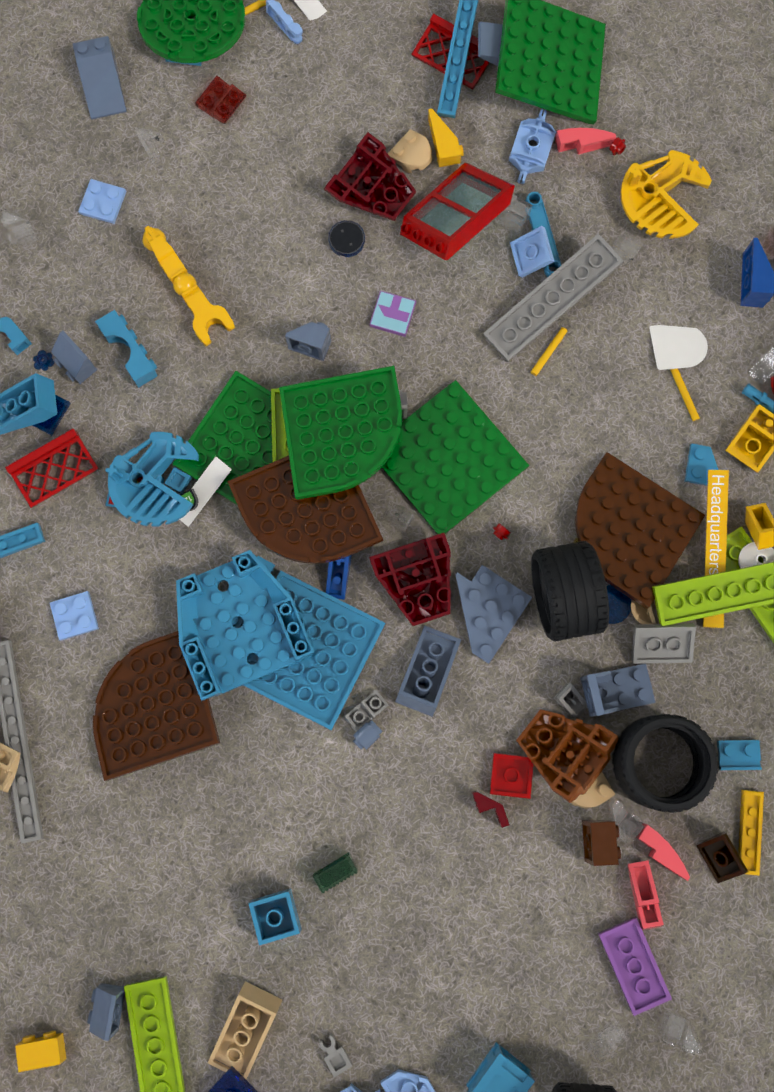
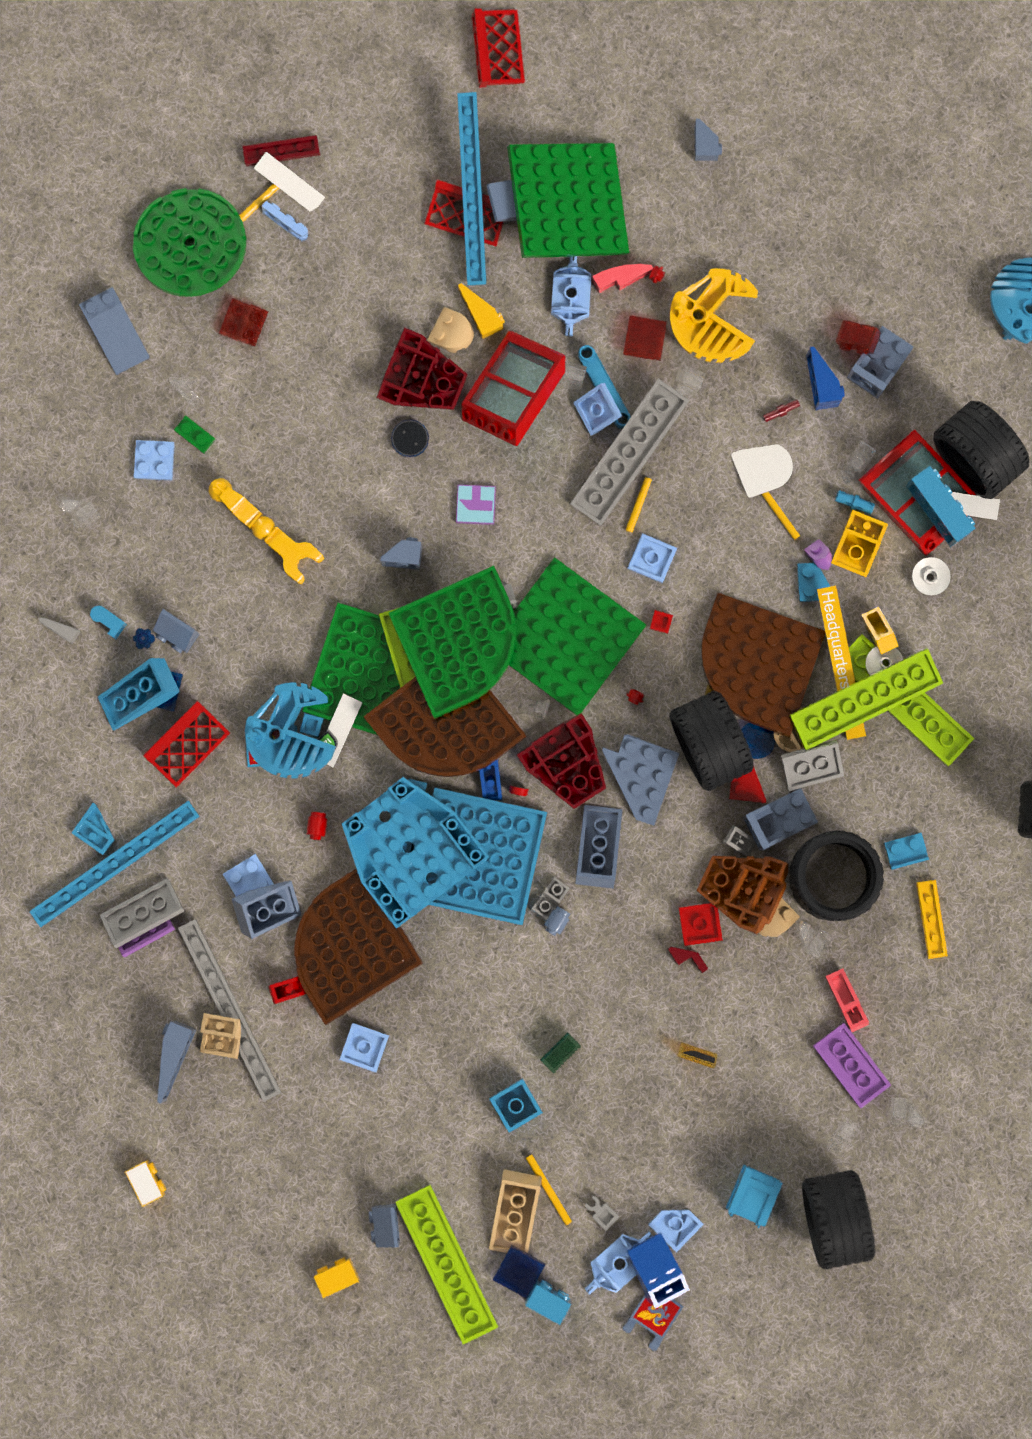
camera: 15 degrees left, 5 degrees up
(75, 735) = (286, 990): none -> red slope
(80, 647) = (266, 908): none -> sand blue slope
(115, 331) = (206, 591): dark azure arch -> none
(138, 814) = (364, 1047): none -> light blue plate
(146, 187) = (194, 434): none -> green plate
(155, 578) = (316, 825): none -> red brick
(286, 1015) = (549, 1190): none -> yellow bar
(362, 594) = (516, 790): none -> red tile
(476, 912) = (697, 1055): none -> clear yellow slope
(544, 466) = (661, 622): none -> red plate
(550, 404) = (652, 558): none -> light blue tile
(591, 650) = (747, 788): none -> red wing
(592, 200) = (645, 338): none -> clear red slope
(601, 842) = (795, 962): reddish brown slope -> none
(662, 851) = (853, 956): coral slope -> none
(691, 42) = (706, 143): none -> sand blue slope
(707, 297) = (781, 410): none -> dark red bar
(716, 440) = (819, 554): none -> medium lavender plate
(722, 857) = (909, 948): dark brown slope -> none

